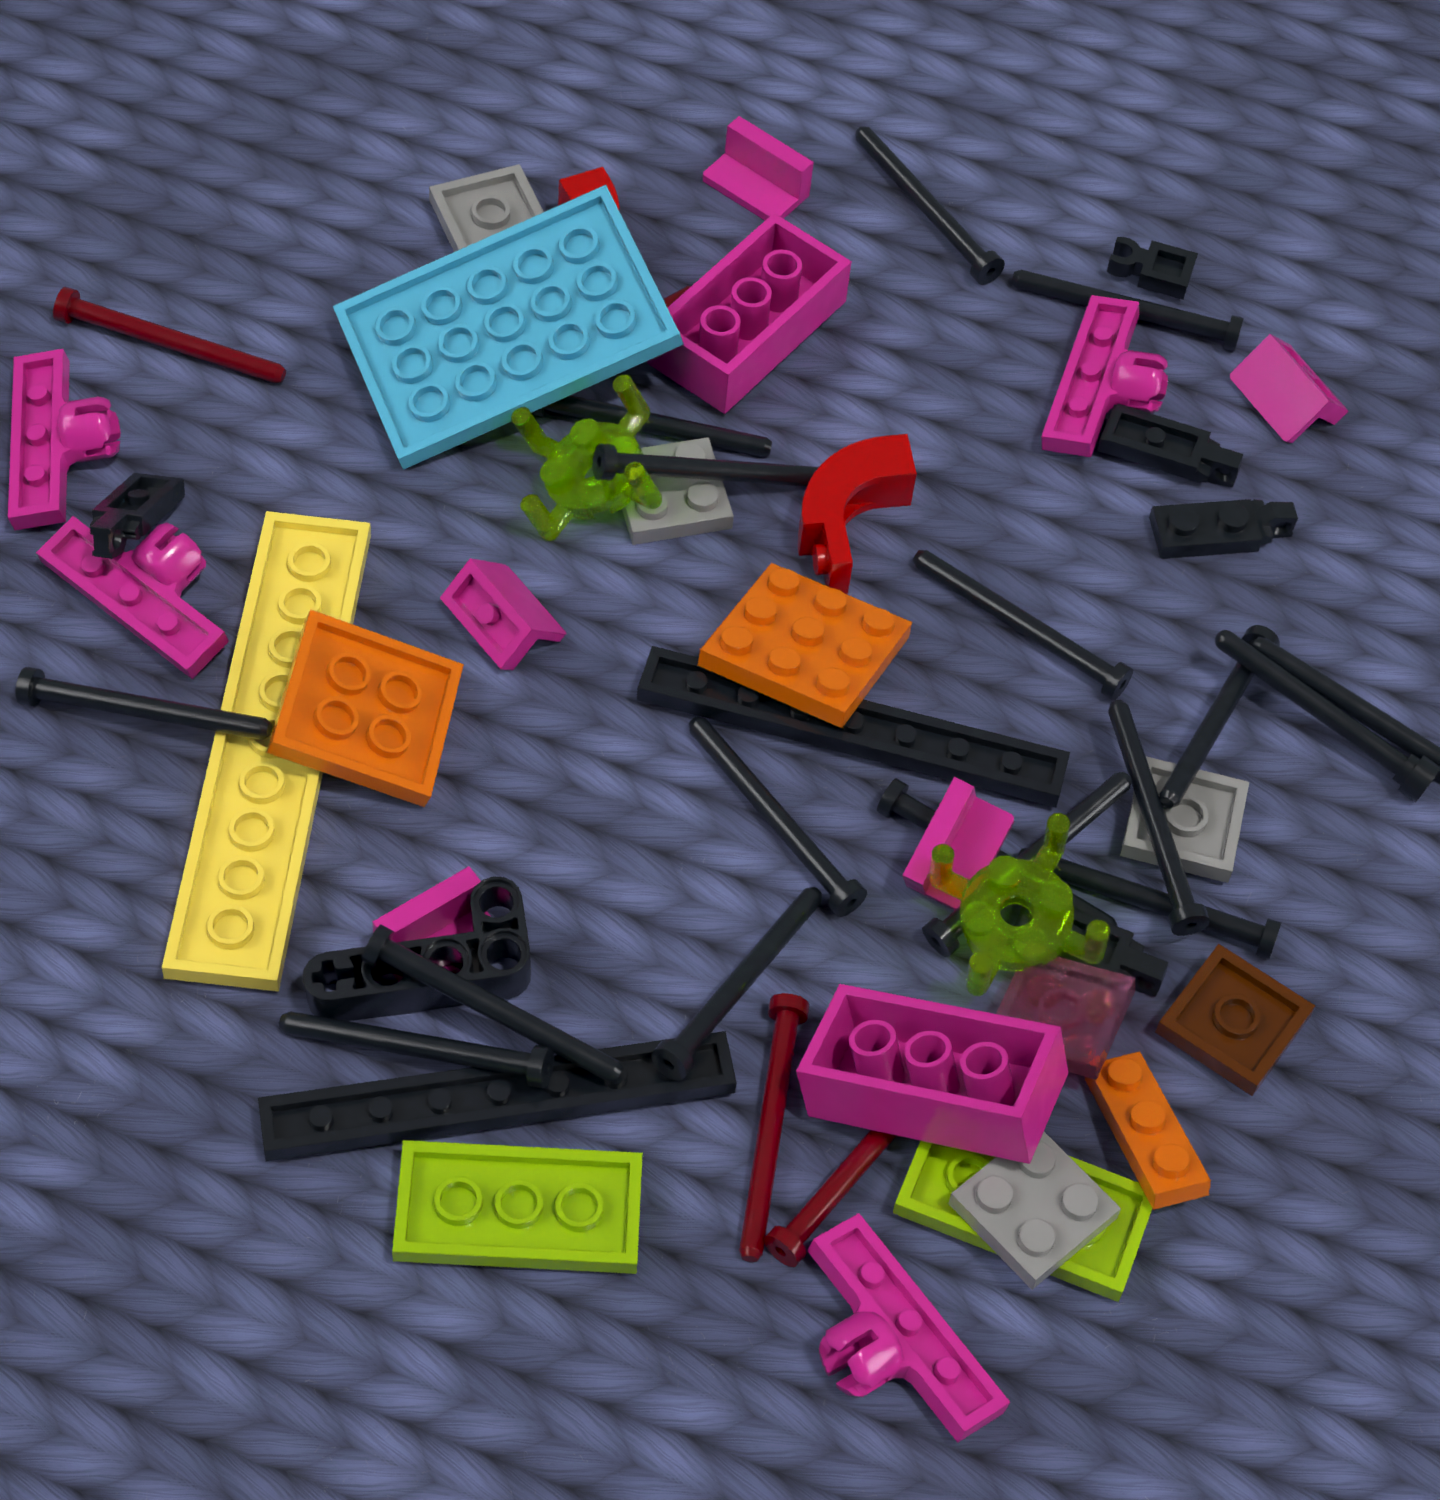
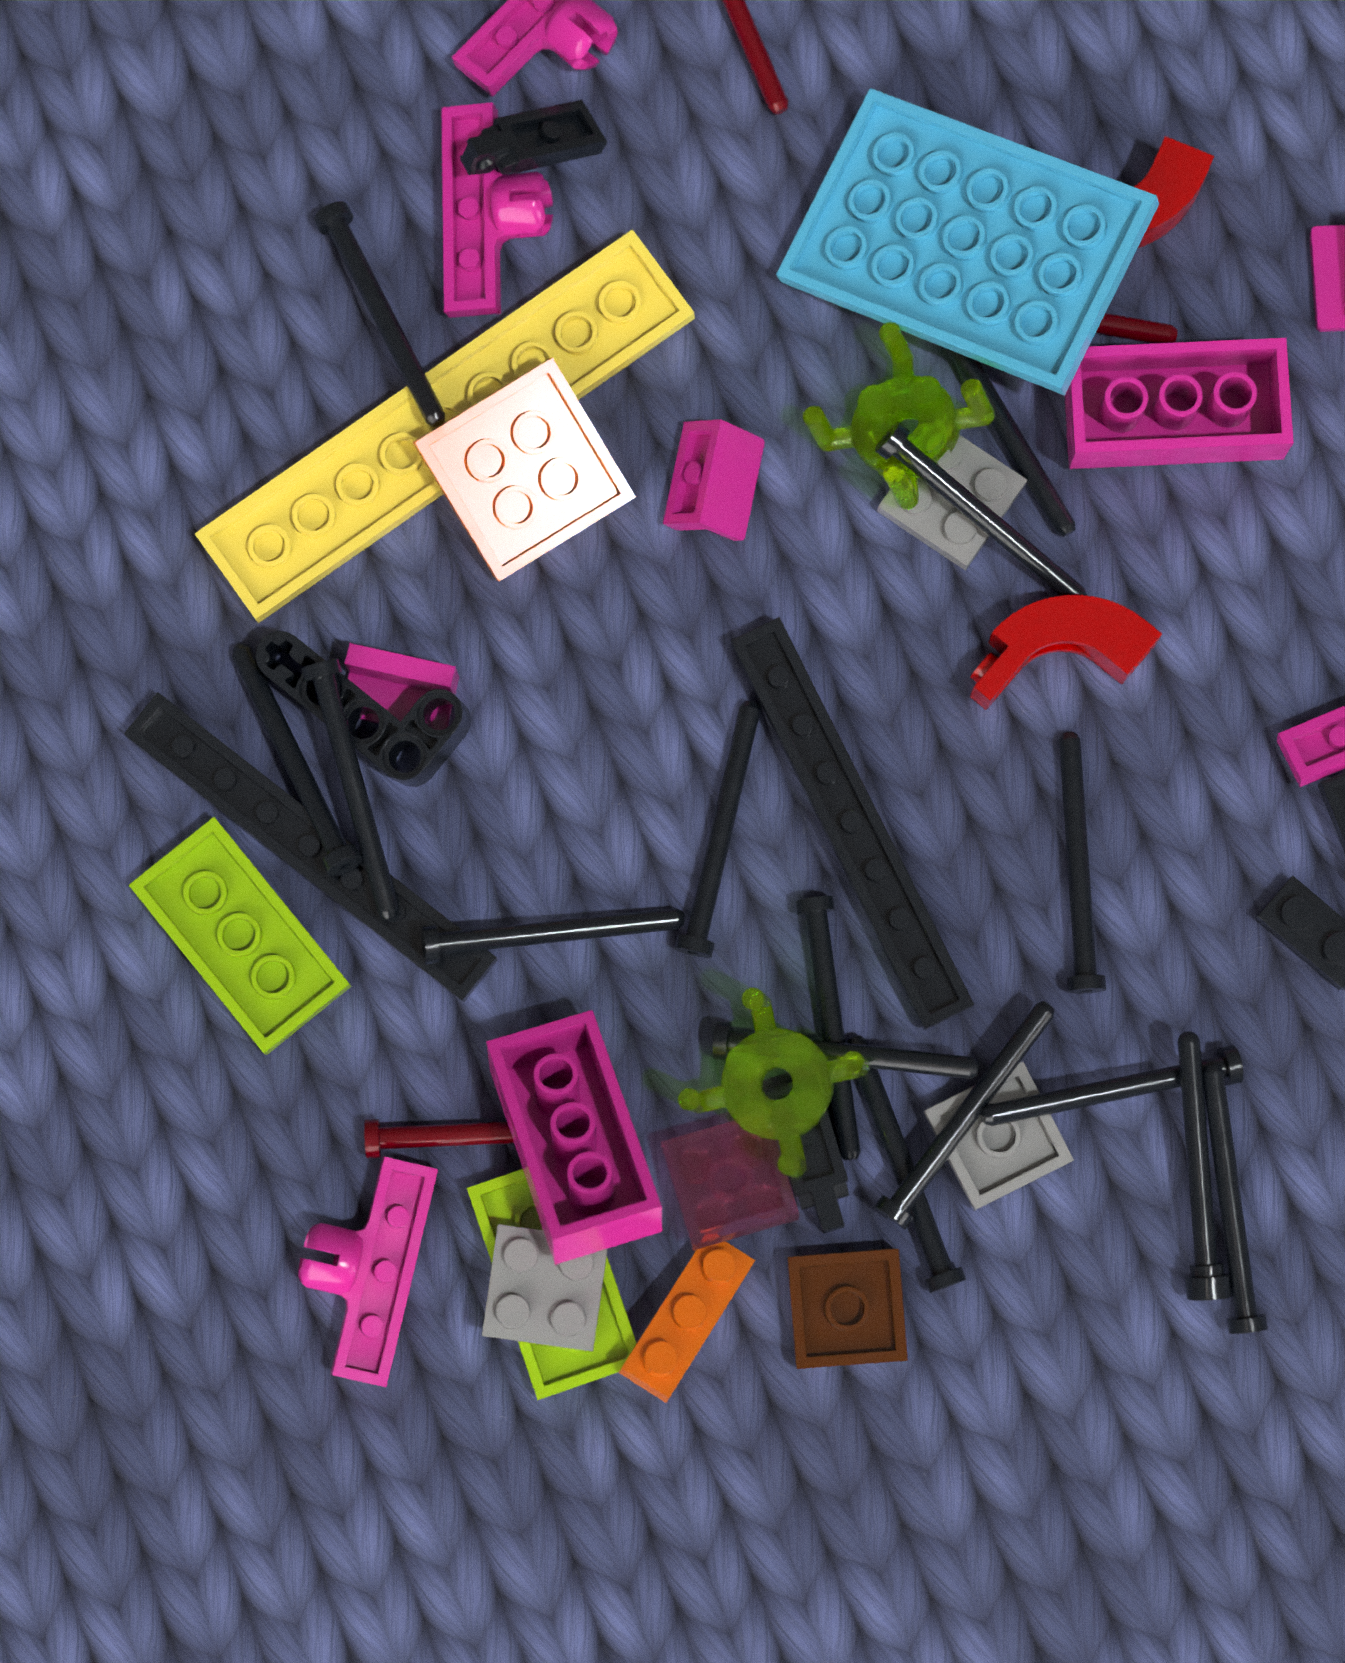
camera: 60 degrees right, 25 degrees up
(483, 205) = (1091, 111): light grey plate -> none
(787, 1012) = (461, 1047): dark red bar -> none
(805, 644) = (889, 726): orange plate -> none
(969, 827) = (811, 989): dark pink panel -> none

